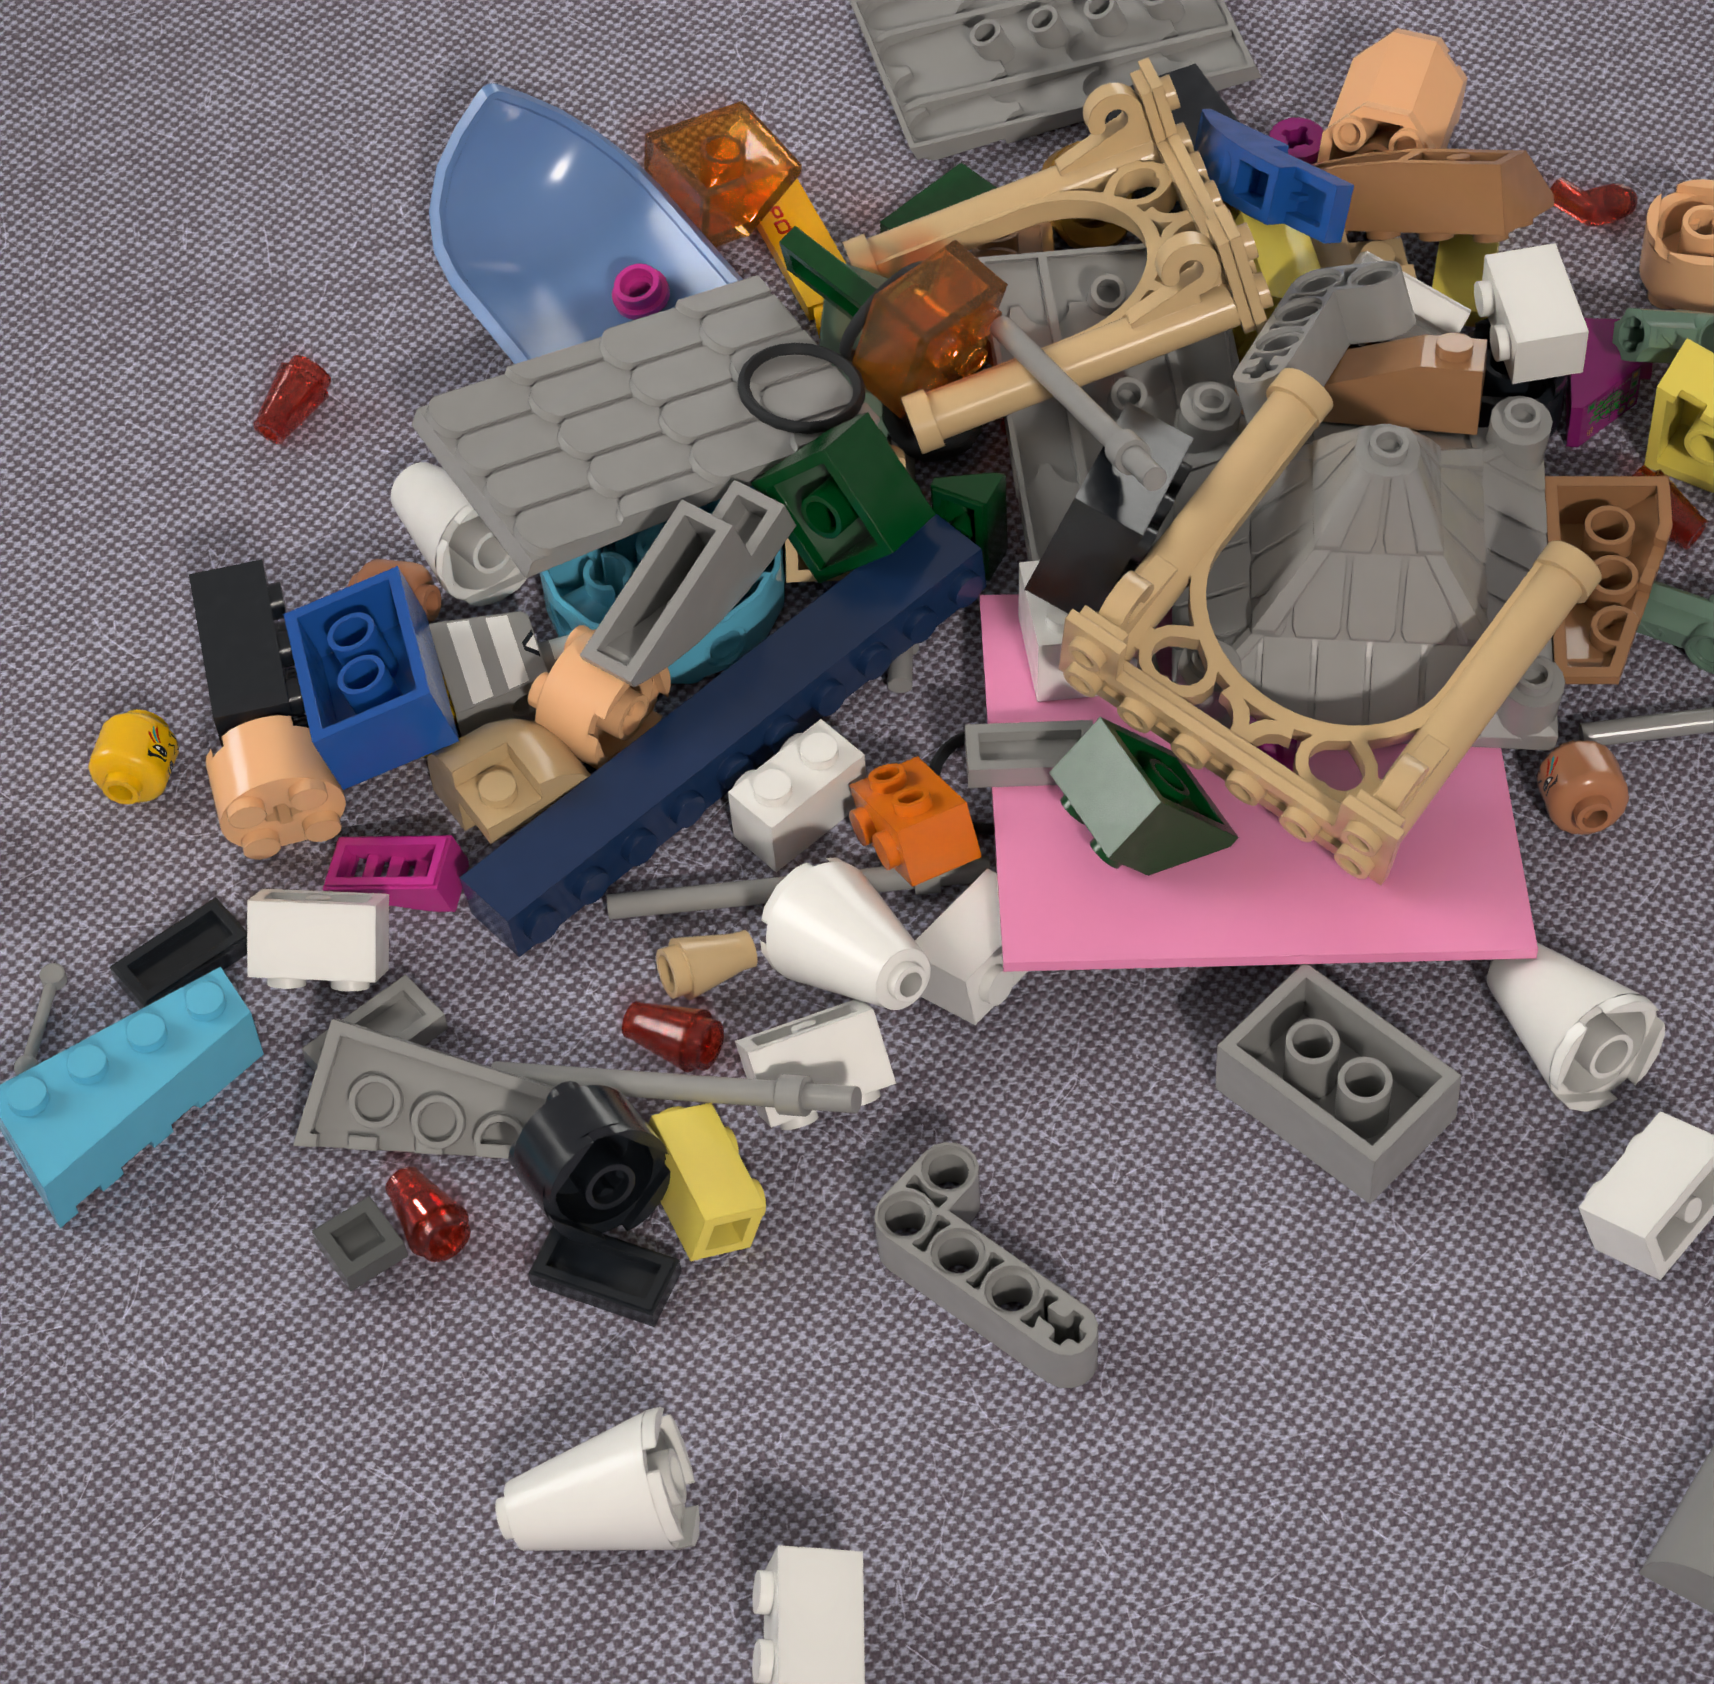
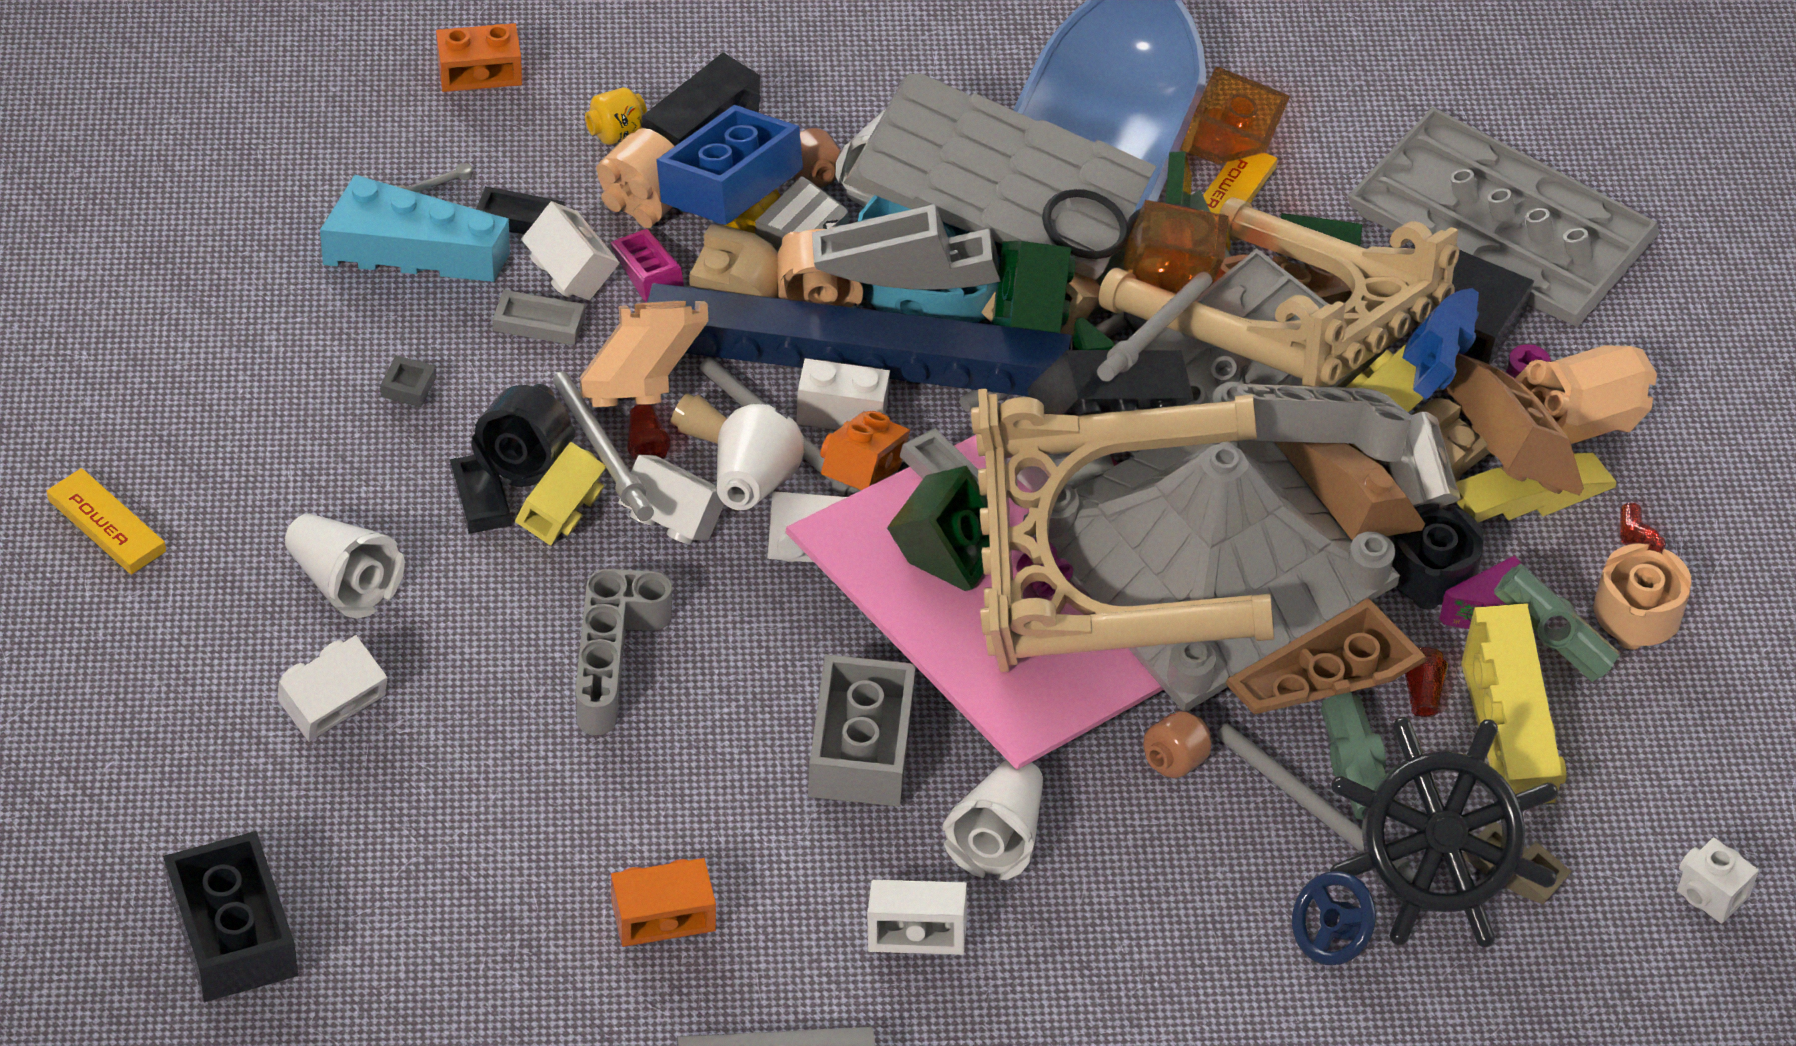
camera: 45 degrees right, 5 degrees down
(292, 397) = (908, 40): clear red cone -> none
(412, 1098) = (506, 340): light grey wing -> none
(427, 1215) = (447, 398): clear red cone -> none
(576, 951) = (642, 352): none -> light nougat brick
(635, 281) = (1123, 135): dark pink plate -> none
(1439, 1453) = (663, 901): none -> orange brick
(1532, 314) = (1469, 519): white brick -> none

